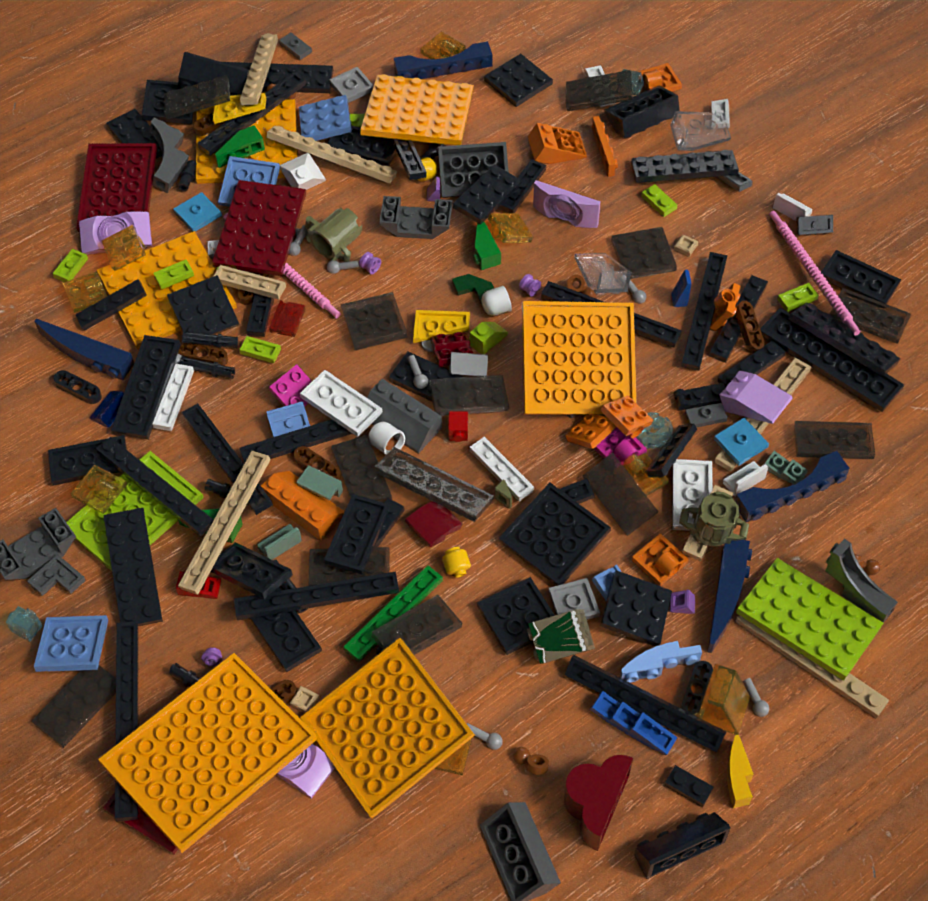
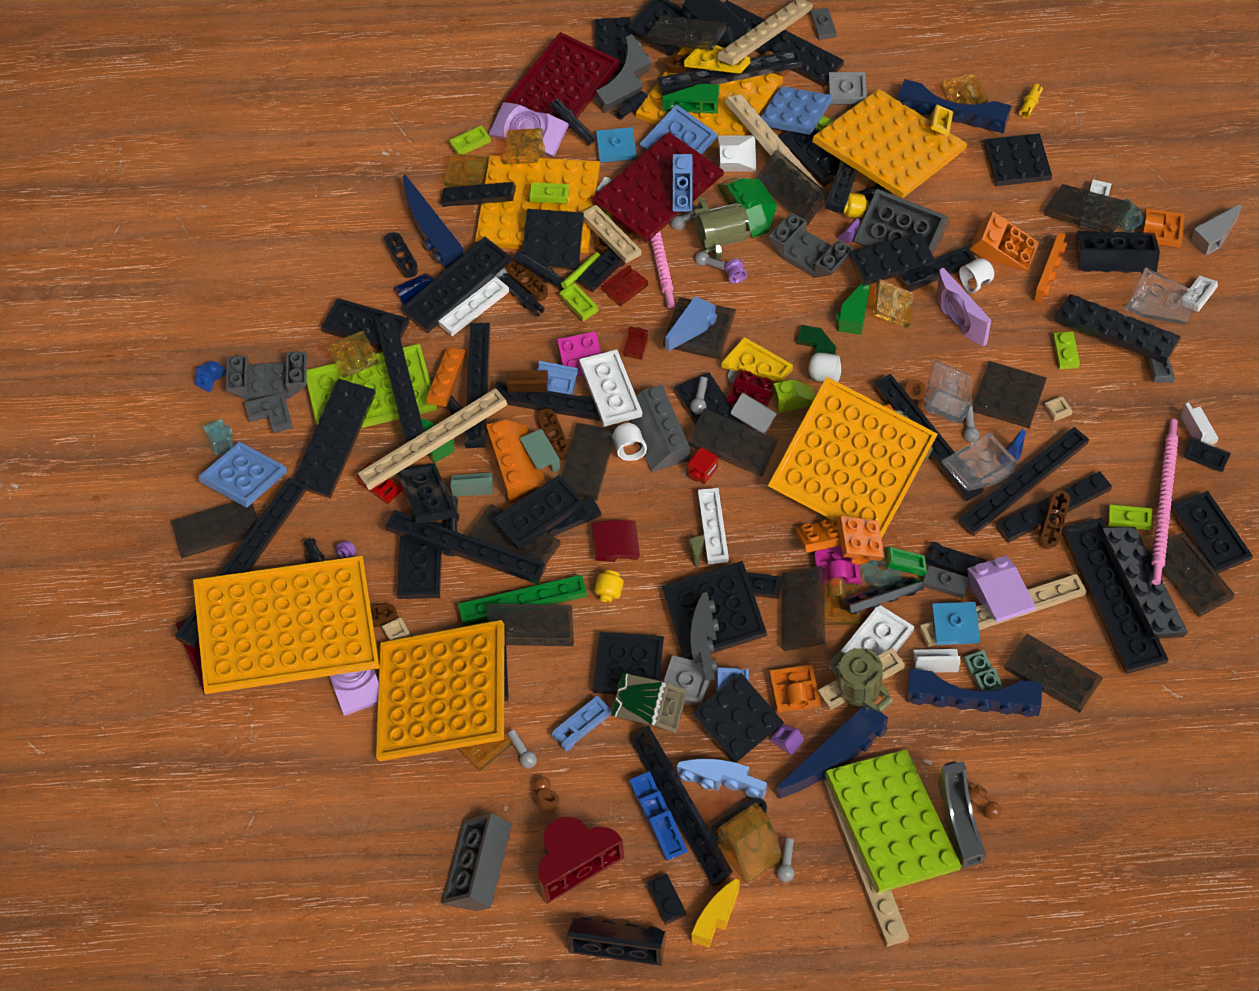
camera: 35 degrees right, 0 degrees up
(144, 206) = (568, 116): none -> black pin
(194, 466) = (446, 377): none -> orange plate
(243, 323) = (580, 270): none -> lime bar
(268, 432) = (527, 381): none -> reddish brown panel
(283, 212) = (682, 182): none -> medium blue slope
(331, 357) = (636, 343): none -> clear red bracket
(336, 196) = (755, 199): none -> green wedge
(366, 177) = (792, 187): none -> clear smoke plate
(369, 317) = (692, 322): none -> medium blue slope
(434, 484) = (640, 506): clear smoke plate -> none
(444, 75) = (941, 120): none -> yellow slope
(496, 33) = (1030, 101): none -> yellow pin
(517, 684) = (581, 723): none -> medium blue plate
(530, 285) = (870, 368): medium lavender wheel -> none
(557, 172) = (980, 270): none -> white helmet
(564, 557) = (702, 633): none -> dark grey slope
(669, 311) = (981, 463): none -> clear slope
(669, 415) = (905, 561): none -> green tile
(698, 64) = (1213, 233): none -> light grey slope
(725, 306) = (1042, 488): orange plate -> none
(755, 363) = (1036, 558): black plate -> none

